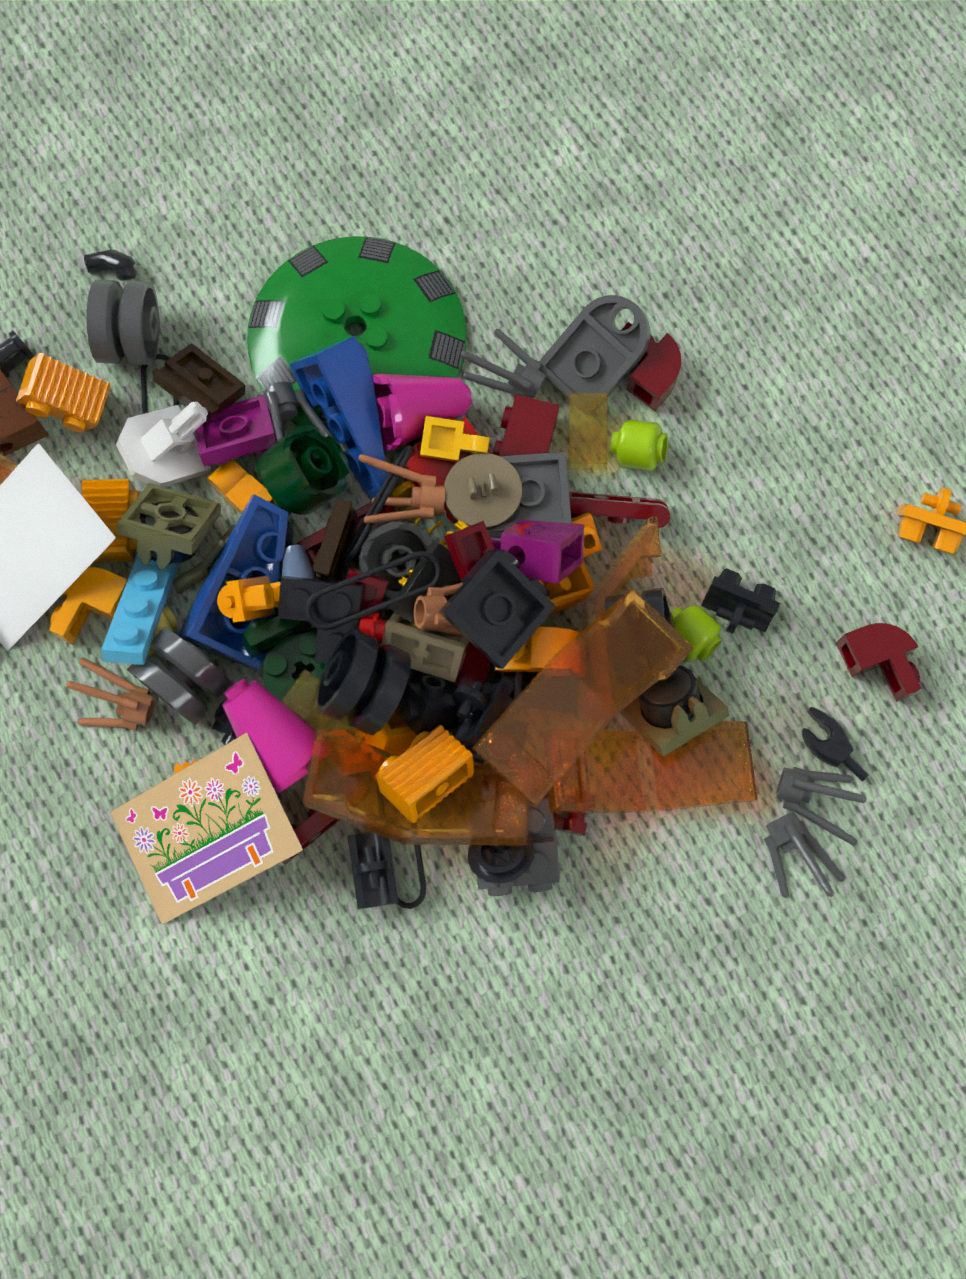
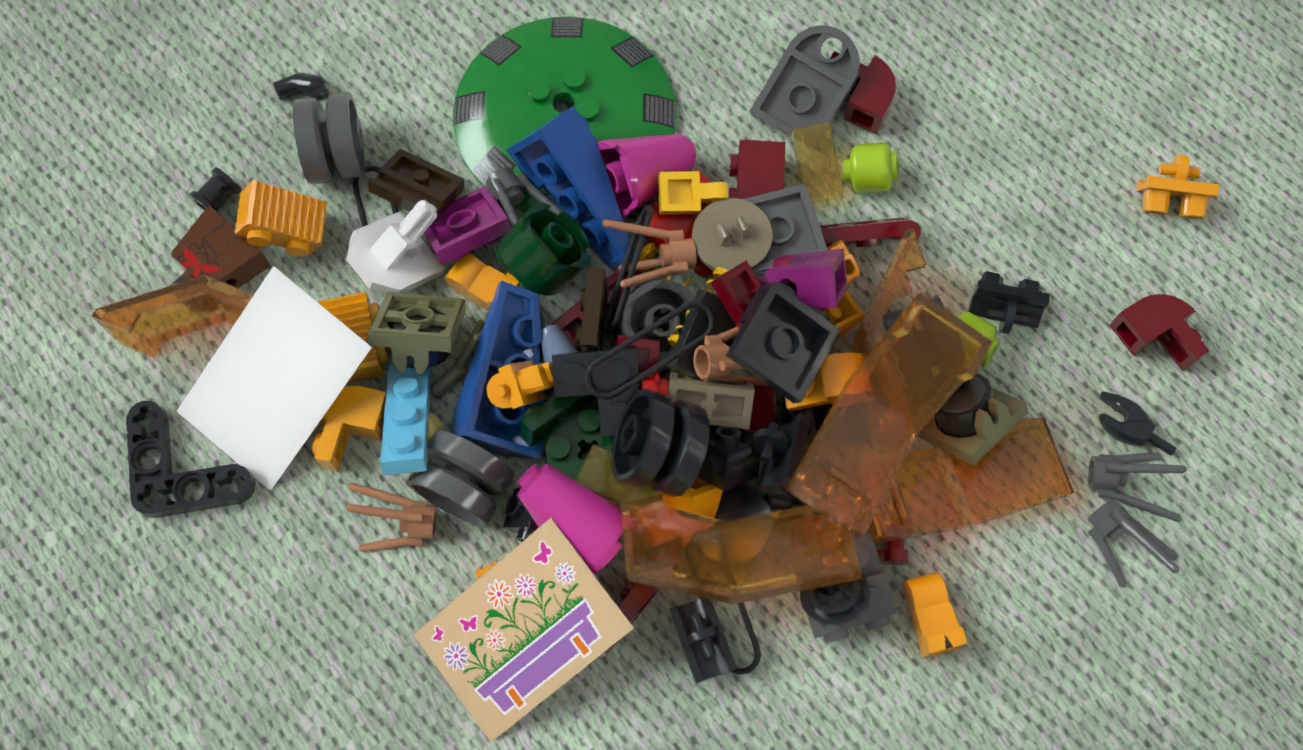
camera: 10 degrees left, 5 degrees down
(425, 772) = (740, 525): light orange brick -> none
(523, 381) = (742, 125): dark grey plant -> none
(595, 888) = (933, 615): none -> light orange leg

